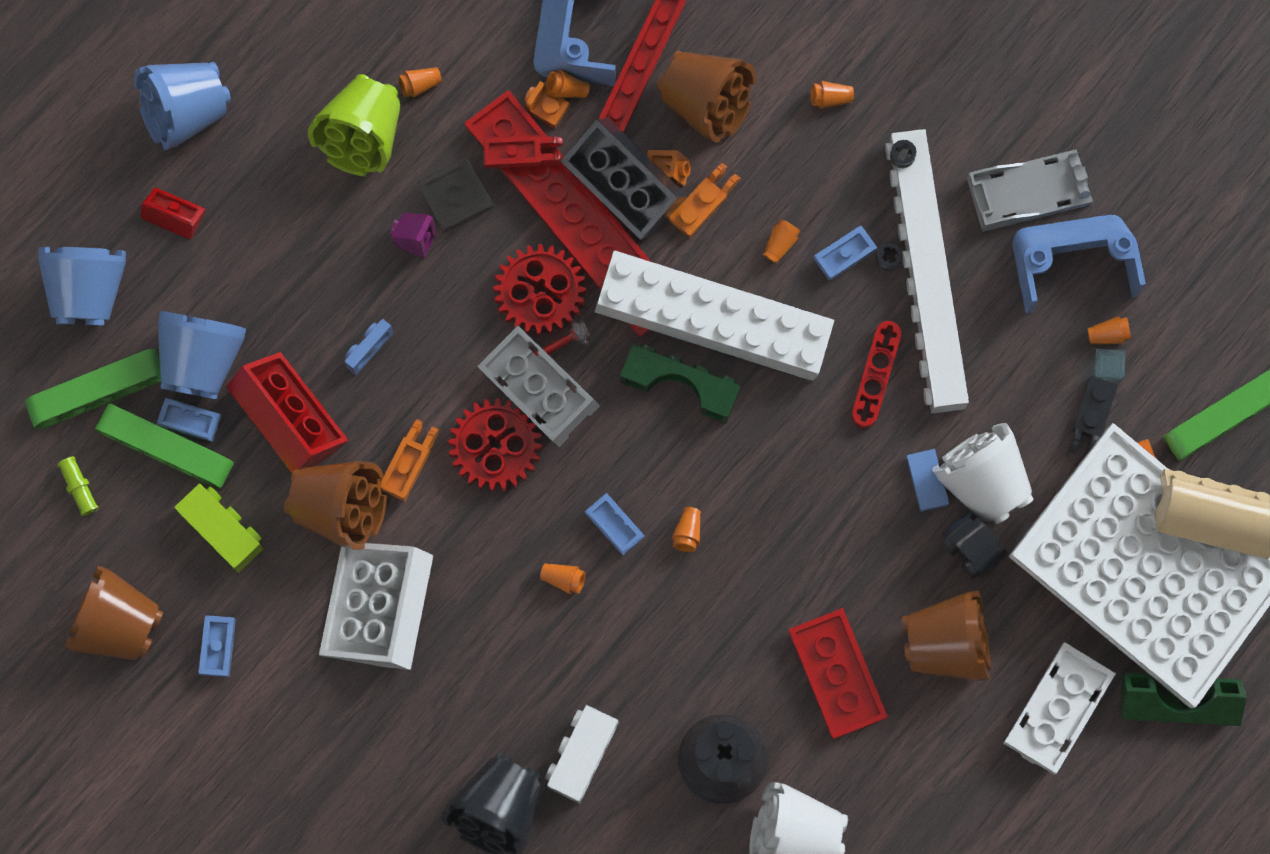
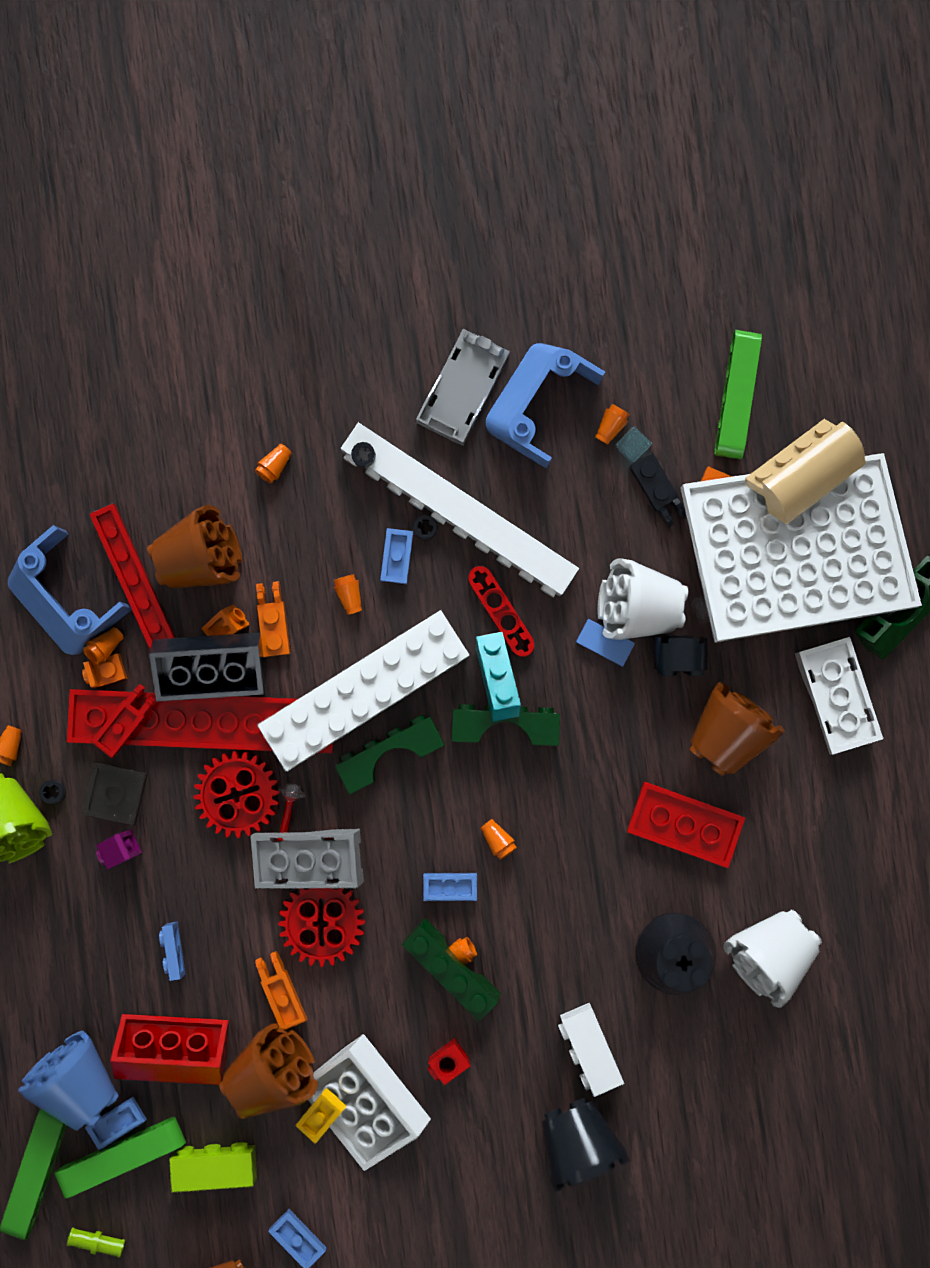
camera: 45 degrees left, 10 degrees up
(337, 576) = (320, 1115): none -> yellow plate
(419, 142) = (52, 800): none -> black bush
(479, 653) = (451, 1050): none -> red brick
(549, 558) = (432, 952): none -> dark green arch
(762, 428) = (540, 727): none -> dark green arch
(821, 411) = (497, 676): none -> brick

